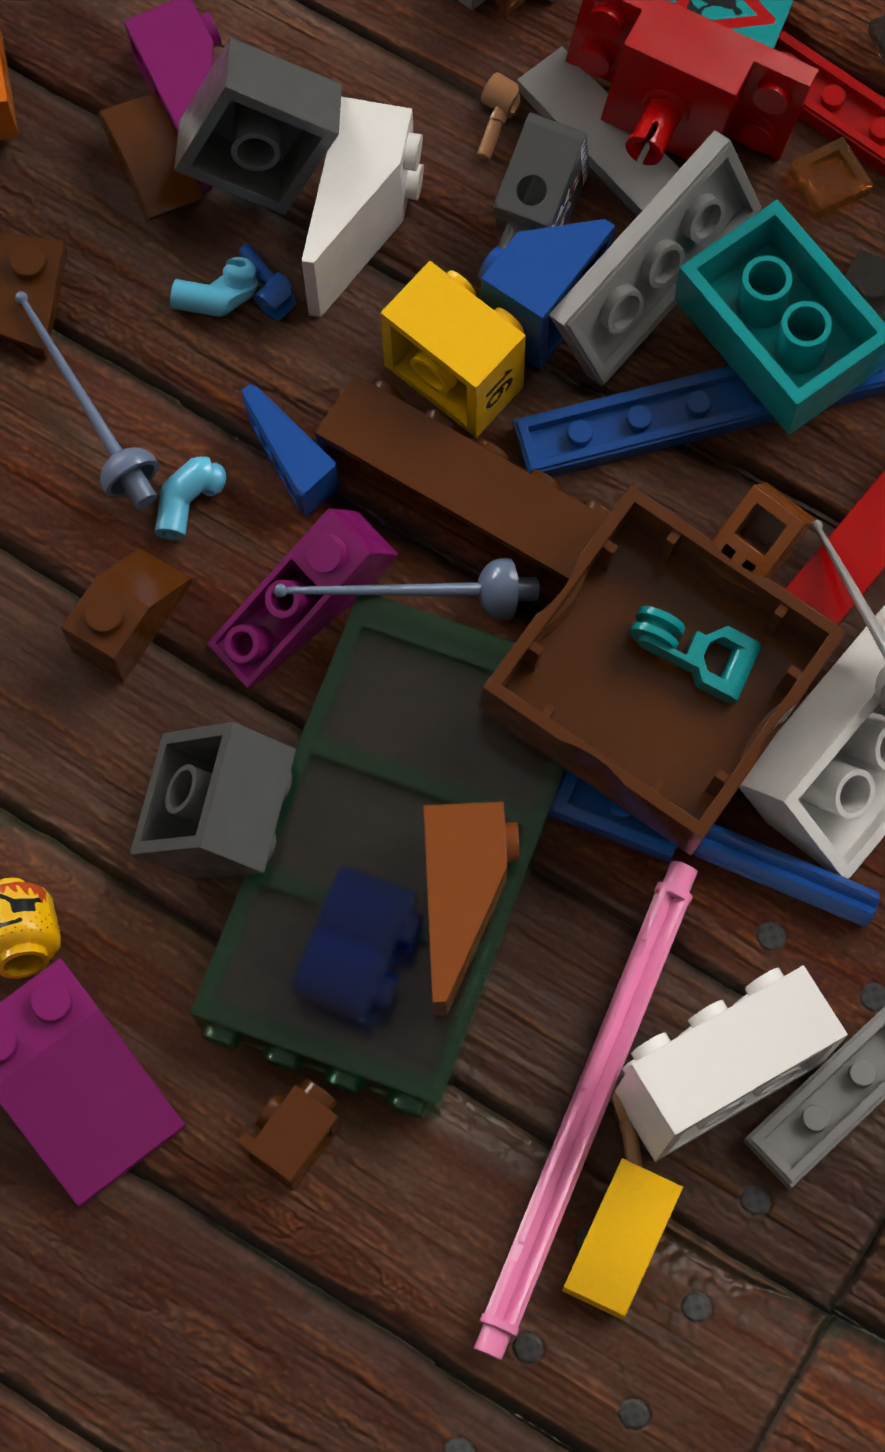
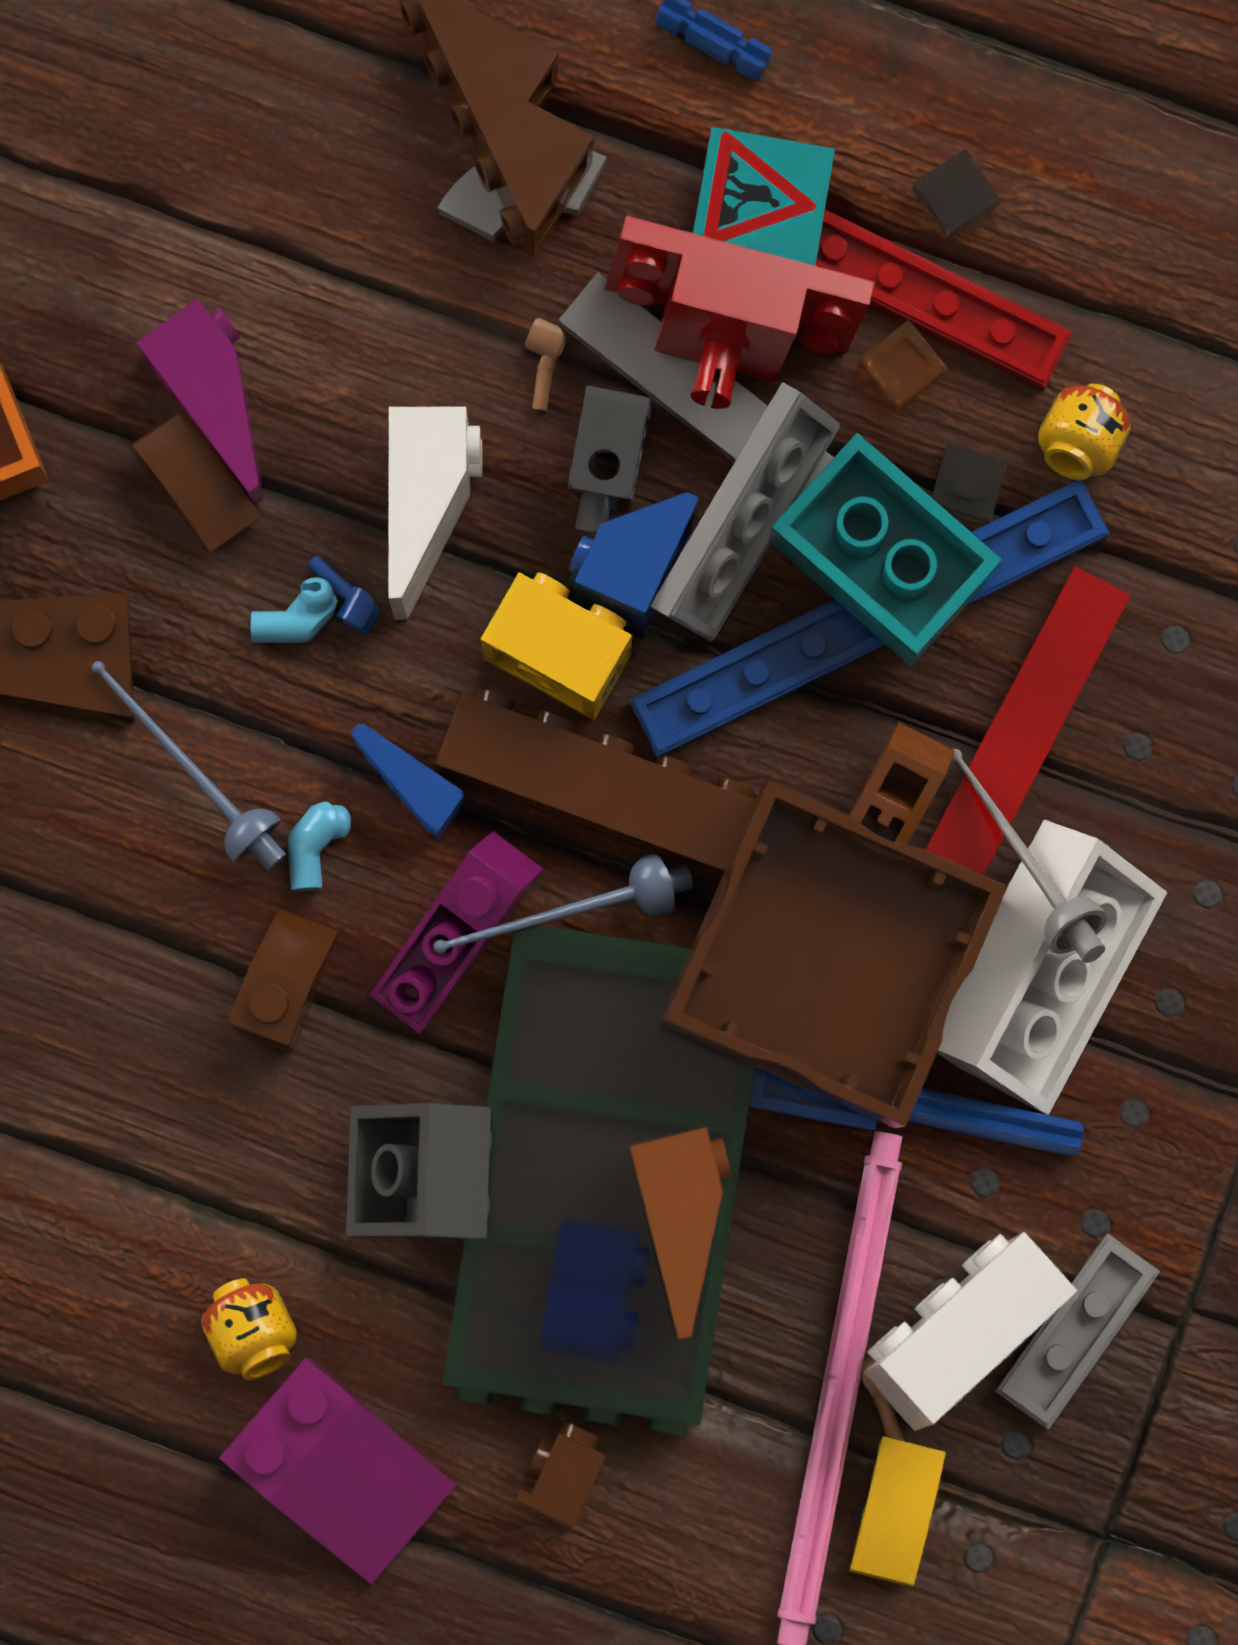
camera: 15 degrees left, 10 degrees up
(258, 126) = (310, 453): dark grey brick -> none
(658, 634) = (821, 922): teal piece -> none

